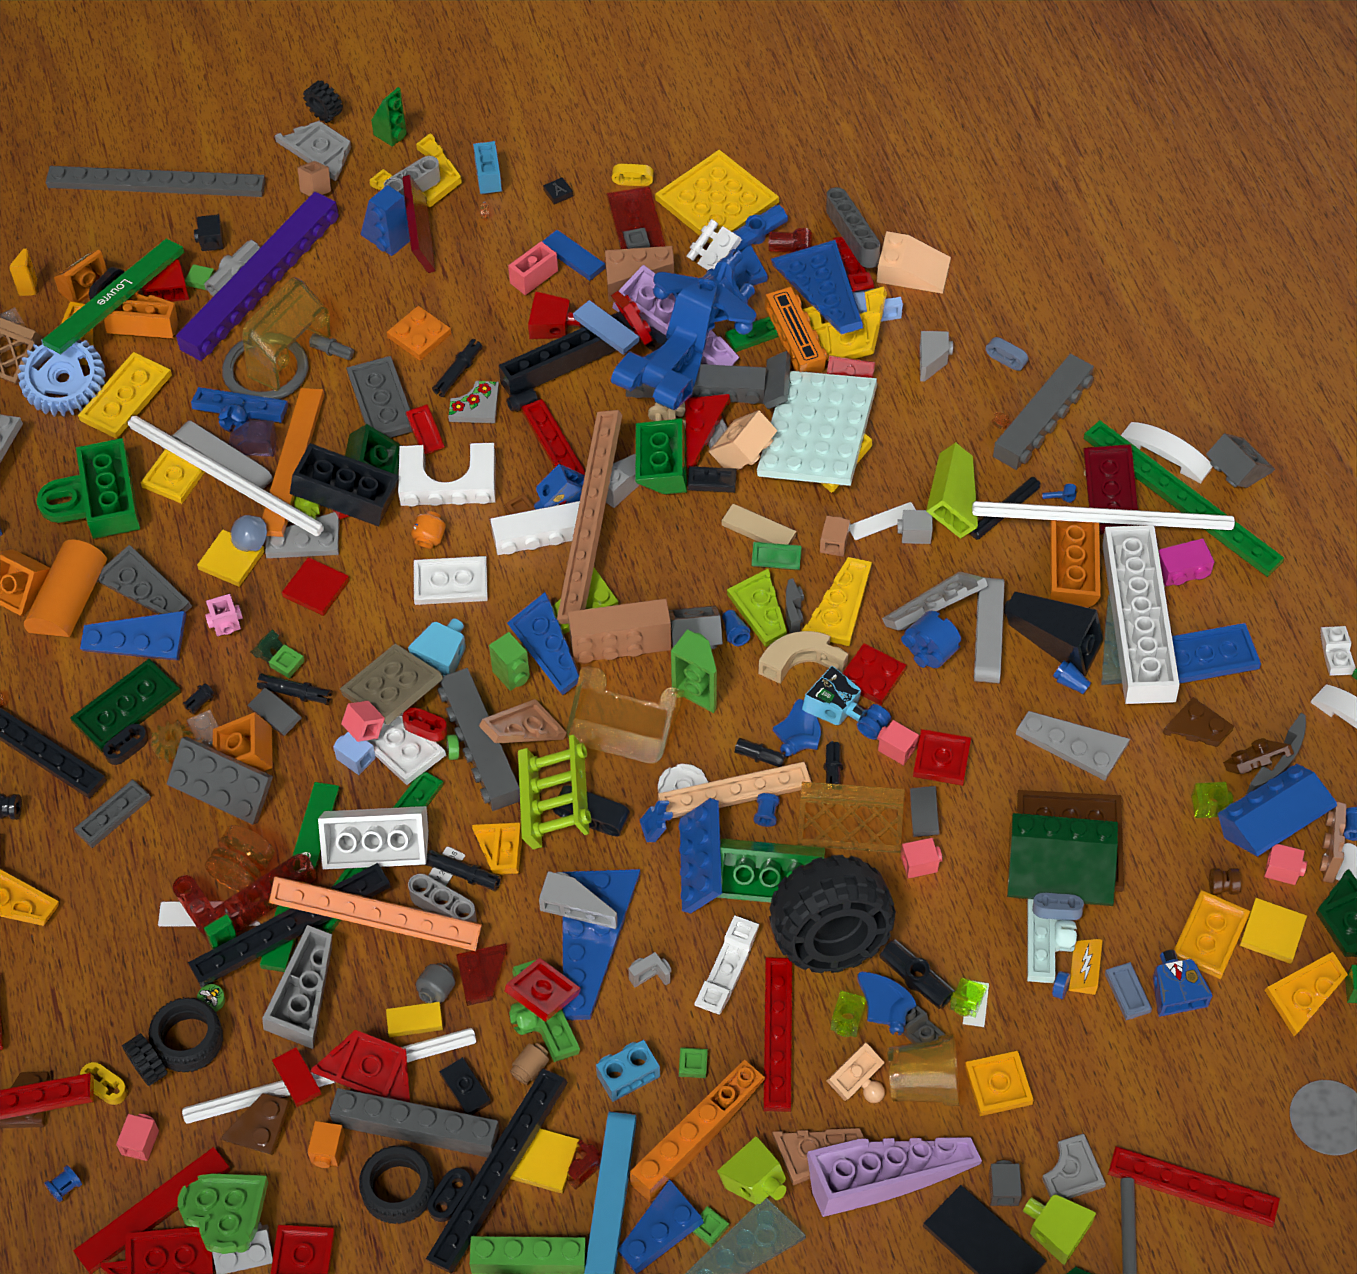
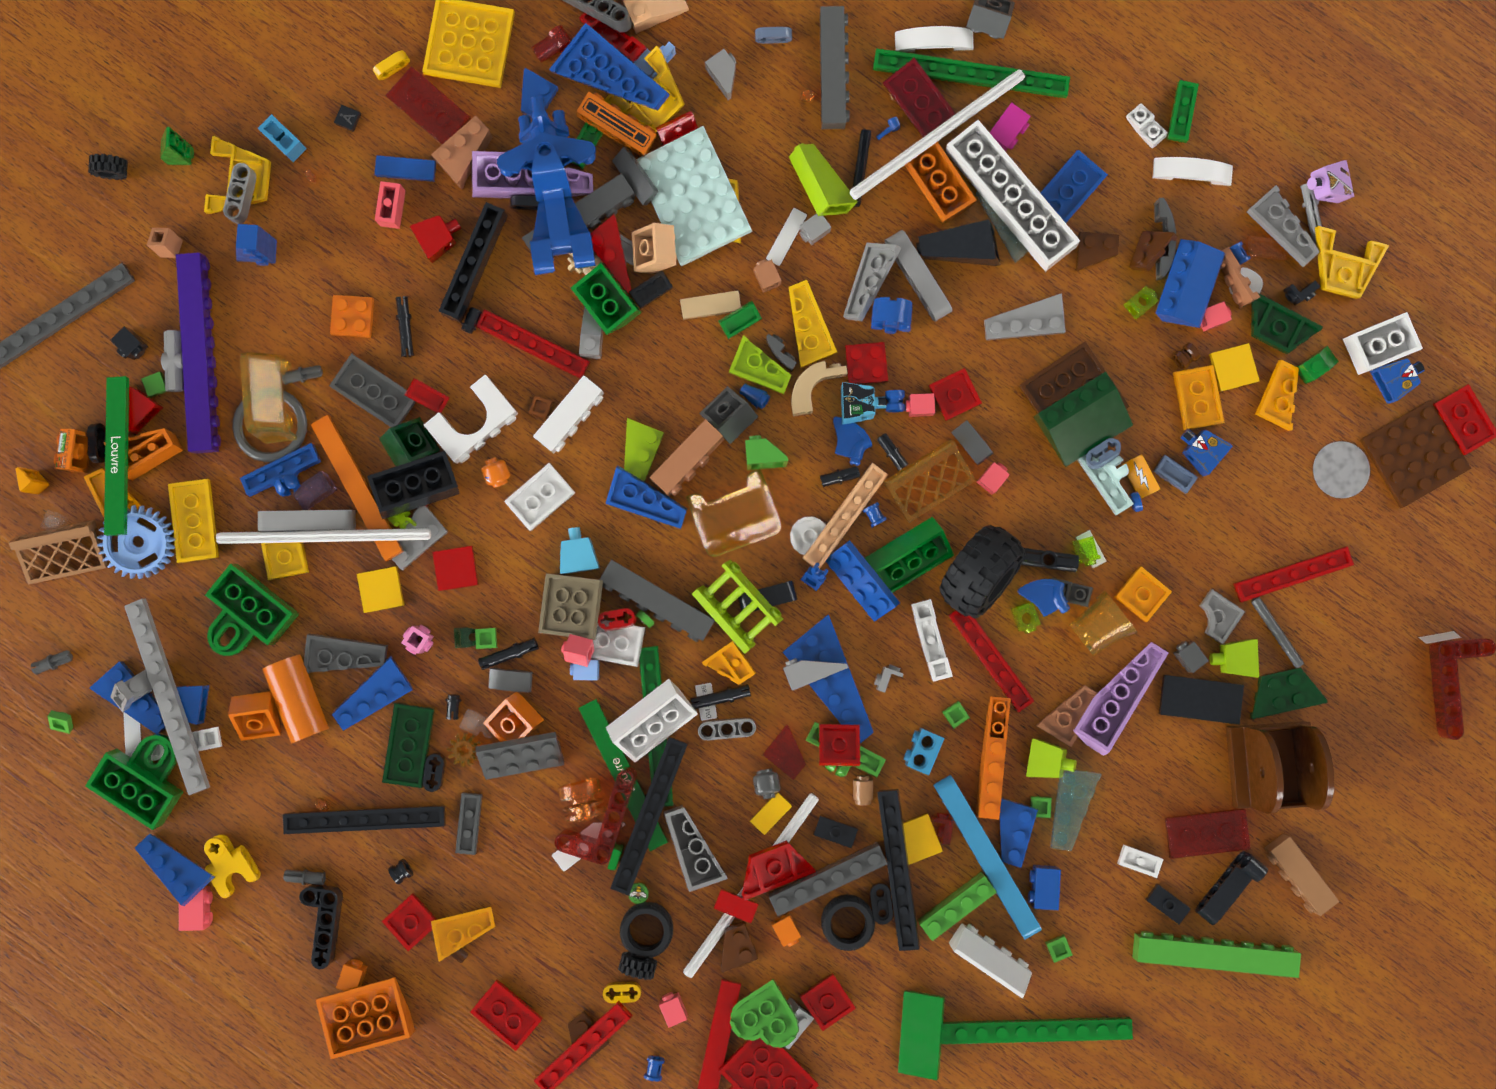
camera: 40 degrees left, 30 degrees up
(248, 533) = (381, 568): sand blue hair -> none
(318, 144) = (139, 208): light grey wing -> none
(375, 913) = (697, 773): orange tile -> none
(418, 224) = (278, 229): dark red tile -> none
(477, 405) = (443, 346): light grey tile -> none
(509, 661) = (635, 534): bright green brick -> none
(522, 724) = (678, 572): nougat wing -> none
(559, 487) = (561, 384): blue torso -> none
(590, 514) = (600, 386): nougat plate -> none
(606, 327) = (488, 224): medium blue tile -> none
(631, 313) = (501, 202): red plate -> none
(636, 238) = (442, 124): dark grey tile -> none
(719, 247) = (509, 91): white plate -> none
(759, 226) = (521, 39): blue piece -> none
(856, 1073) = (1057, 651): light nougat plate -> none
(1071, 677) = (993, 273): blue cone -> none

